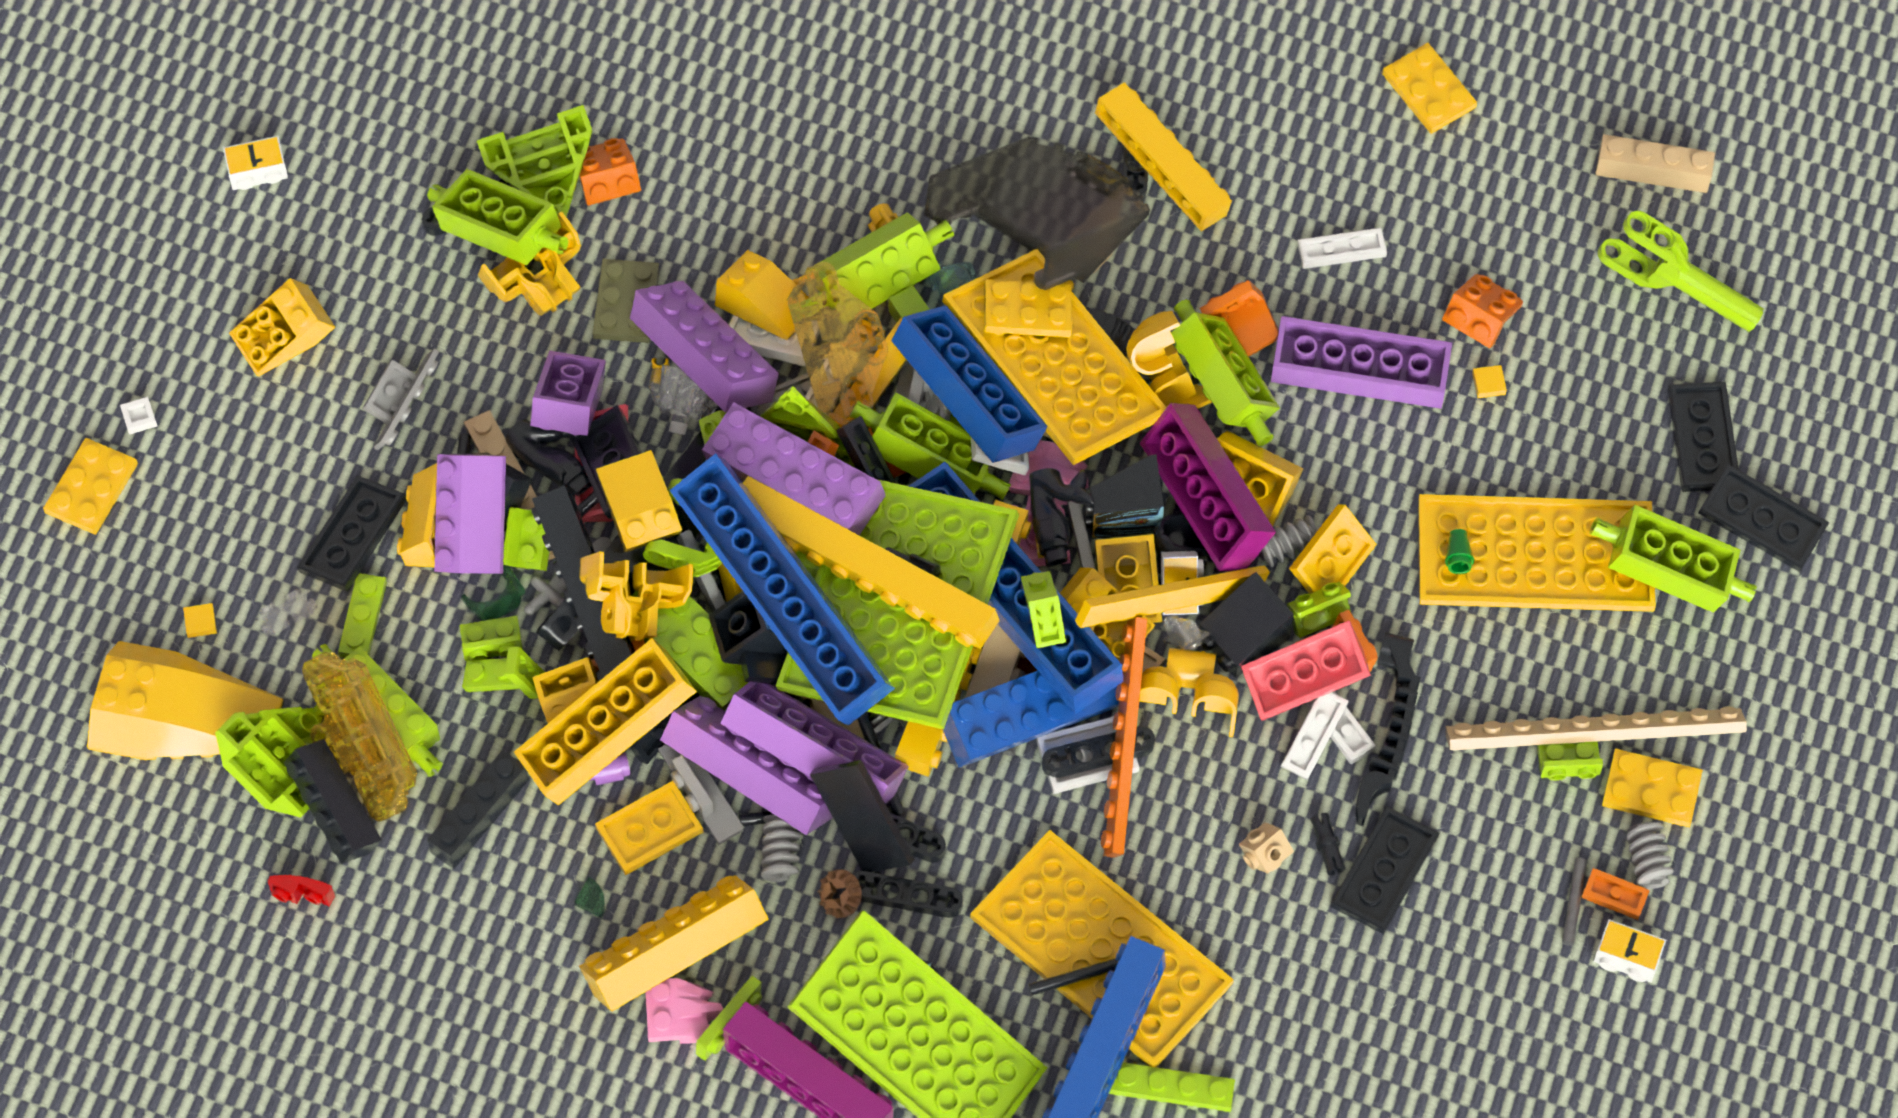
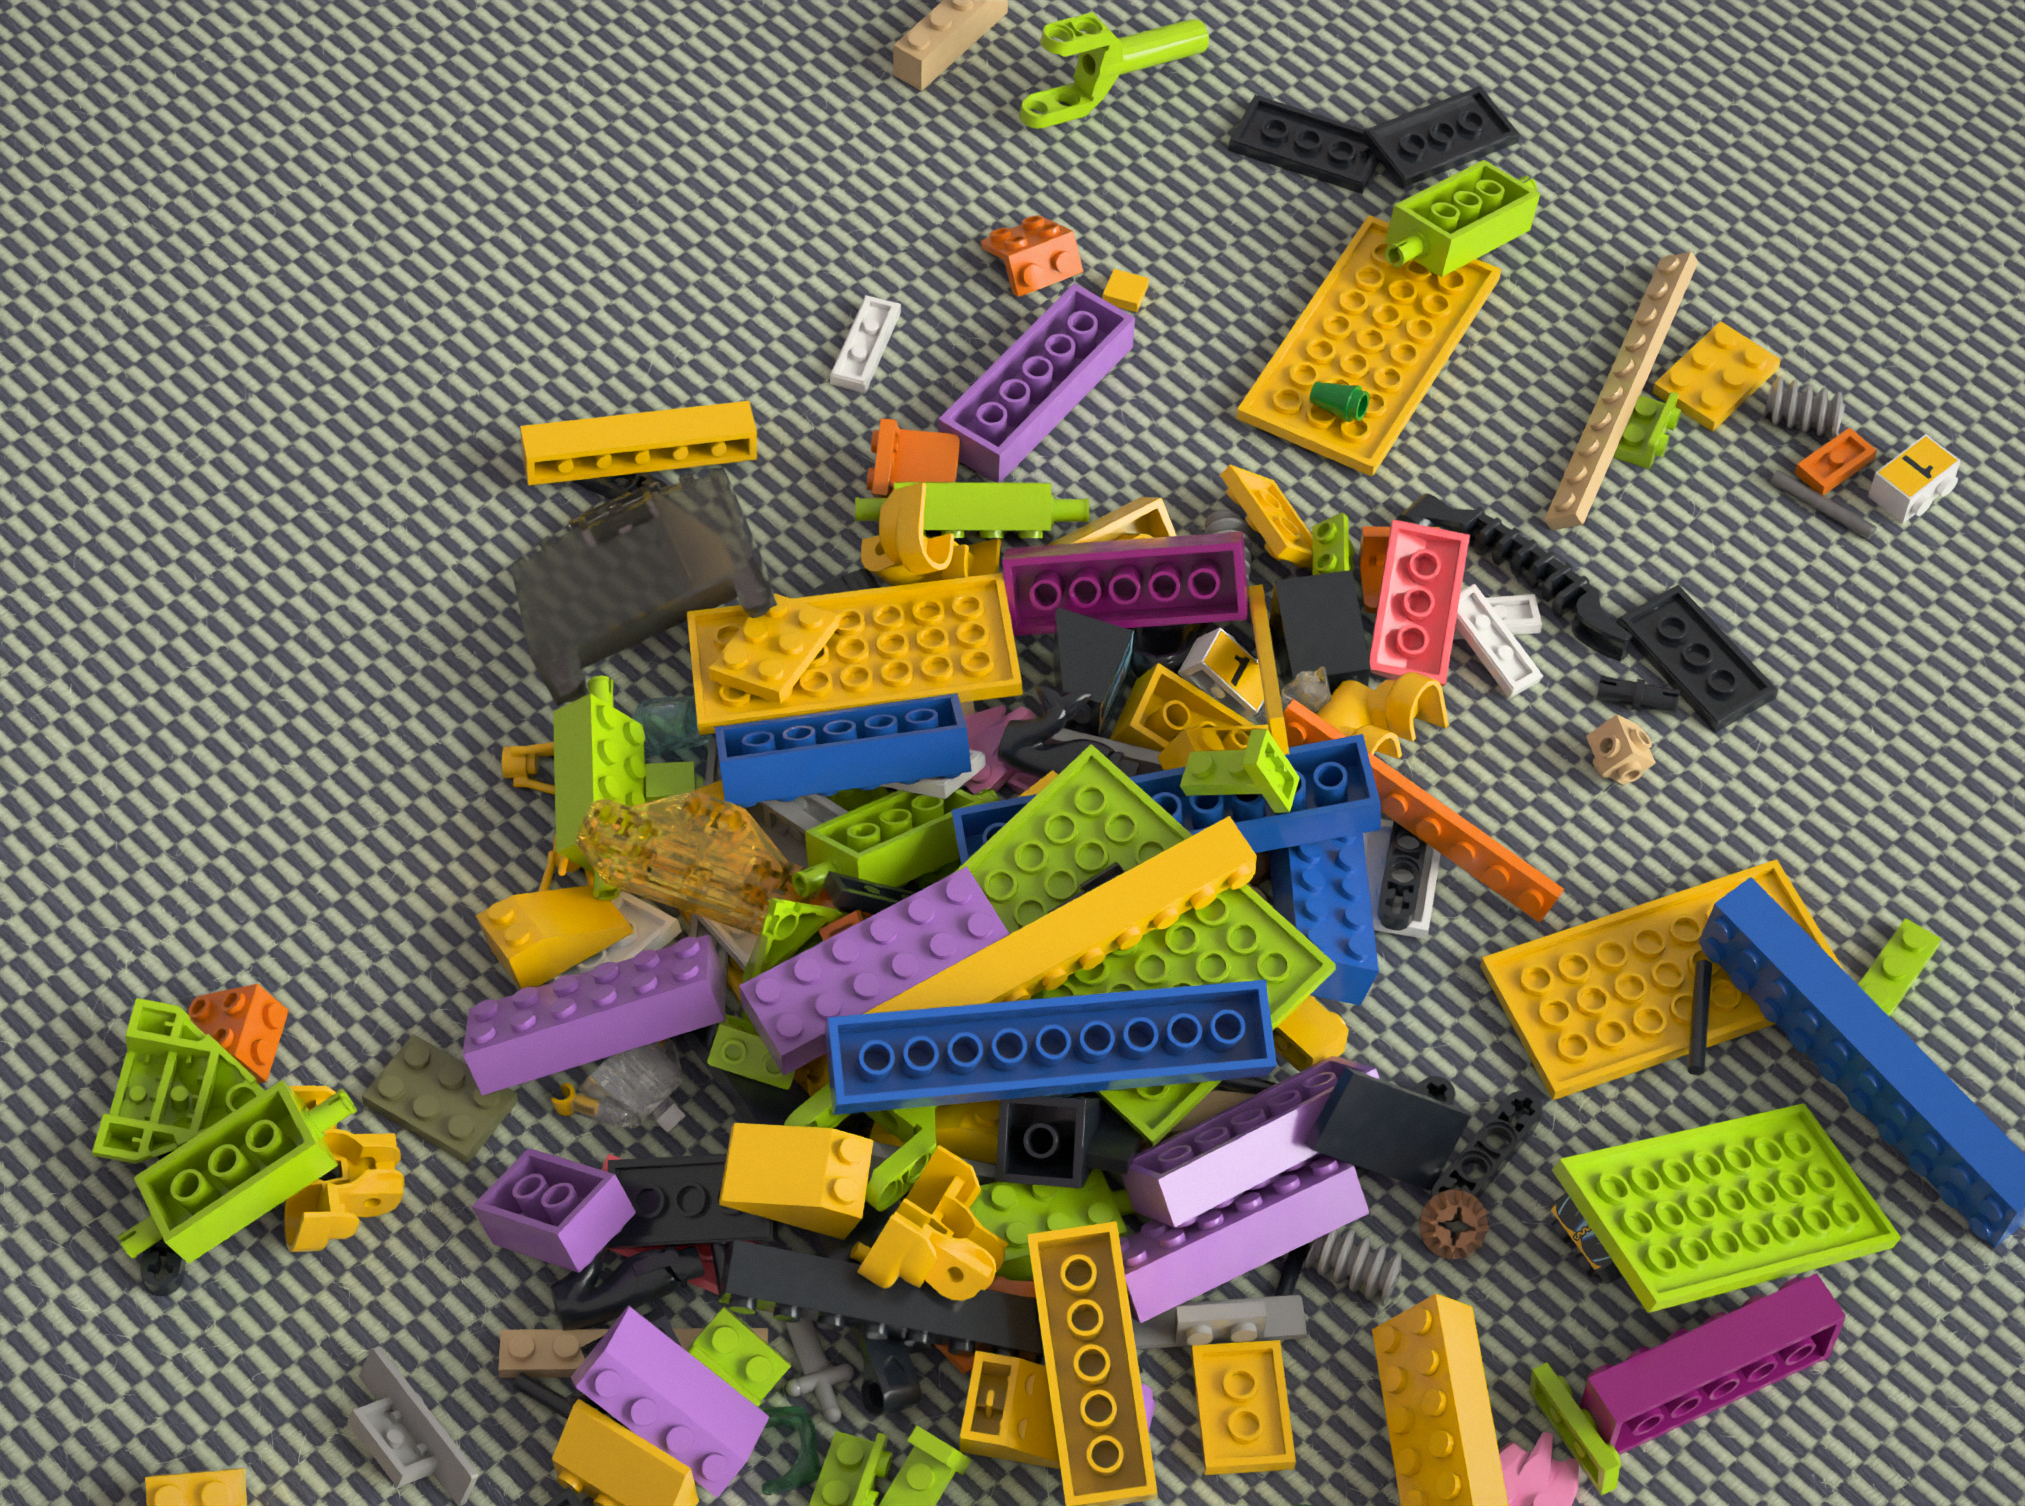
camera: 65 degrees left, 10 degrees down
(1429, 88) = (712, 177): yellow plate -> none

